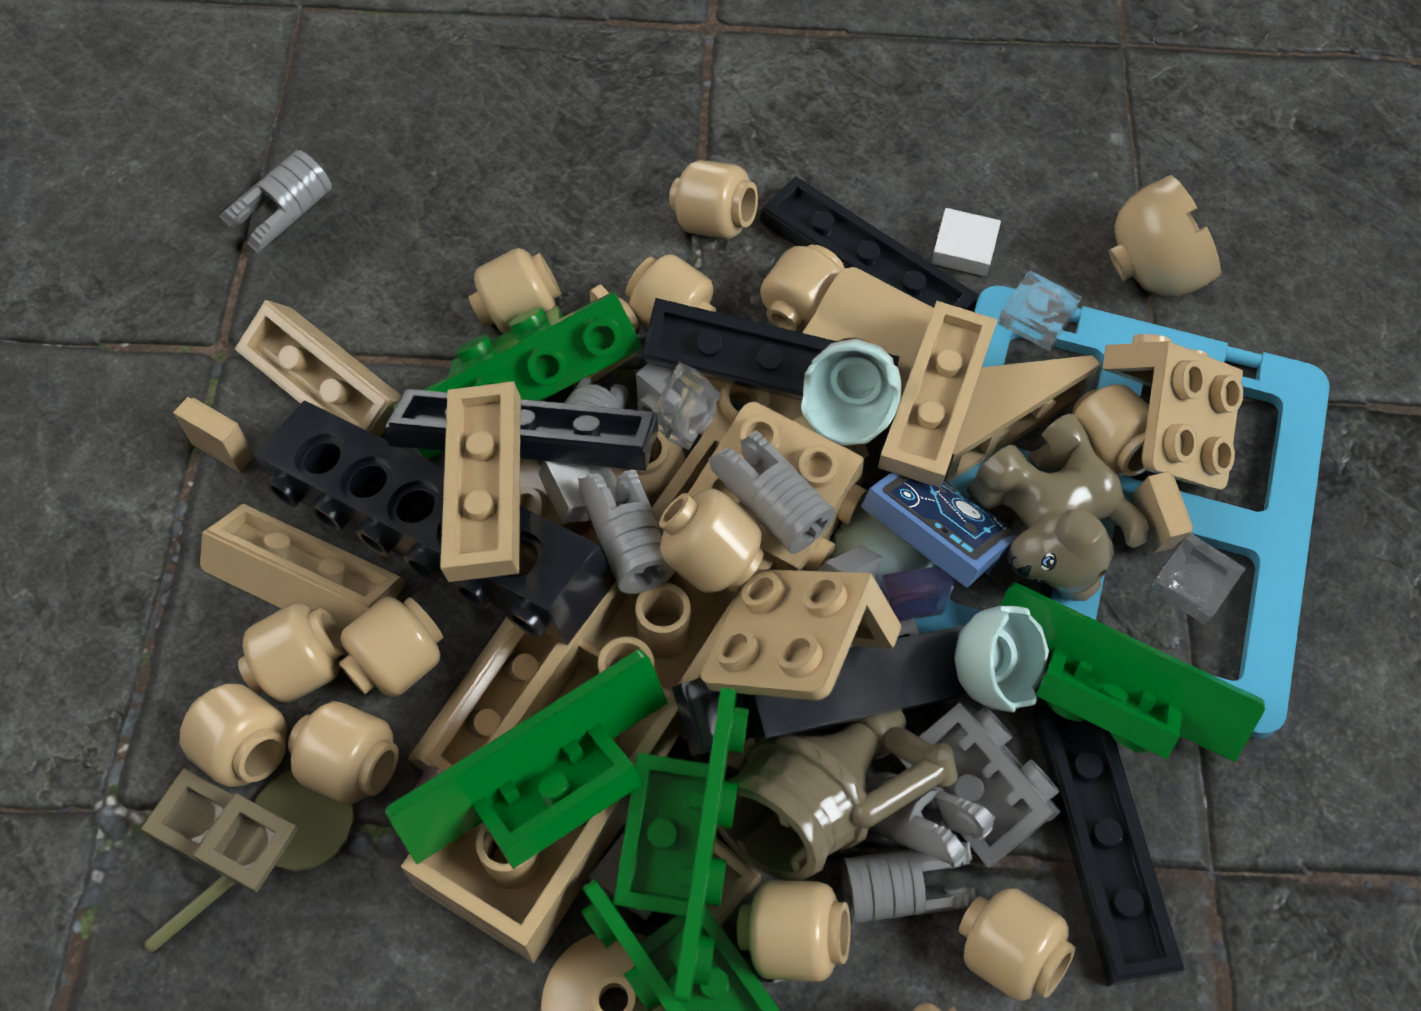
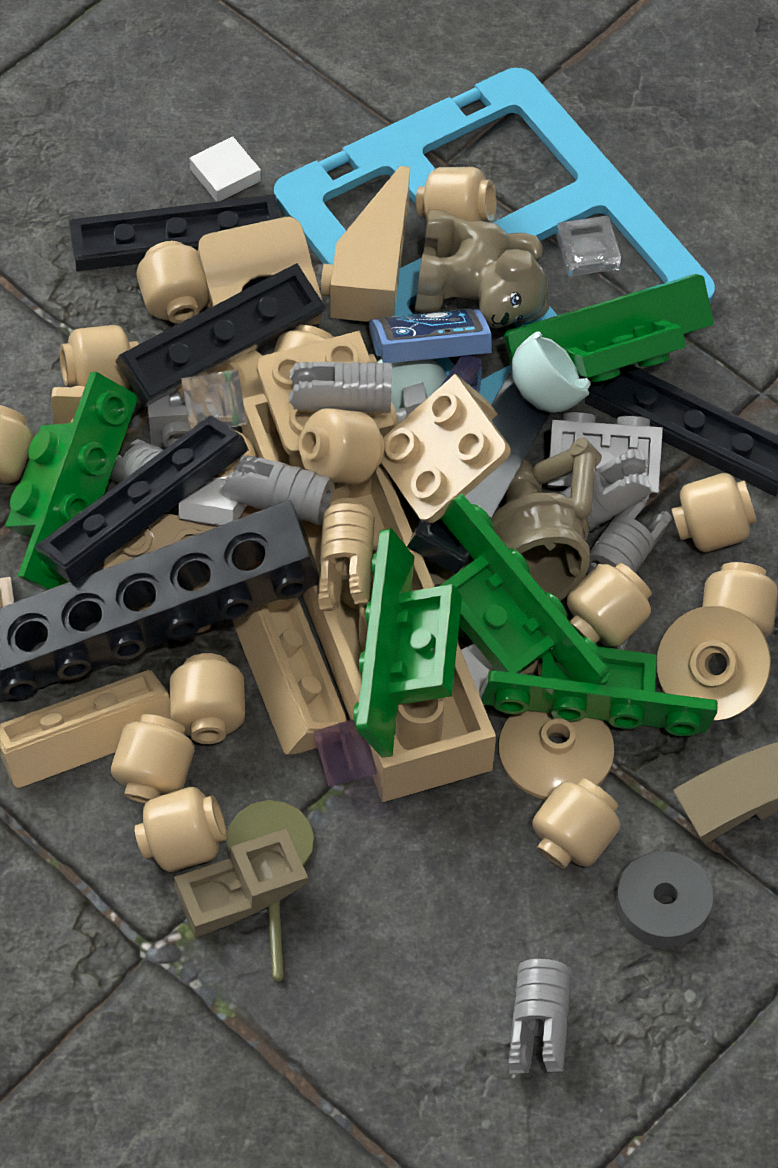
camera: 50 degrees left, 5 degrees down
(342, 753) = (257, 773): tan head -> none
(481, 482) = (181, 528): tan plate -> none
(598, 641) = (346, 554): none -> tan hinge
(714, 199) = (41, 278): tan head -> none
(851, 392) = (306, 302): light aqua hair -> none
(937, 394) = (350, 261): tan plate -> none
(1039, 310) = (324, 171): clear plate -> none
(1163, 242) = (348, 64): tan cylinder -> none
(1164, 511) = (535, 219): tan tile -> none
(1189, 407) = (486, 145): tan bracket -> none

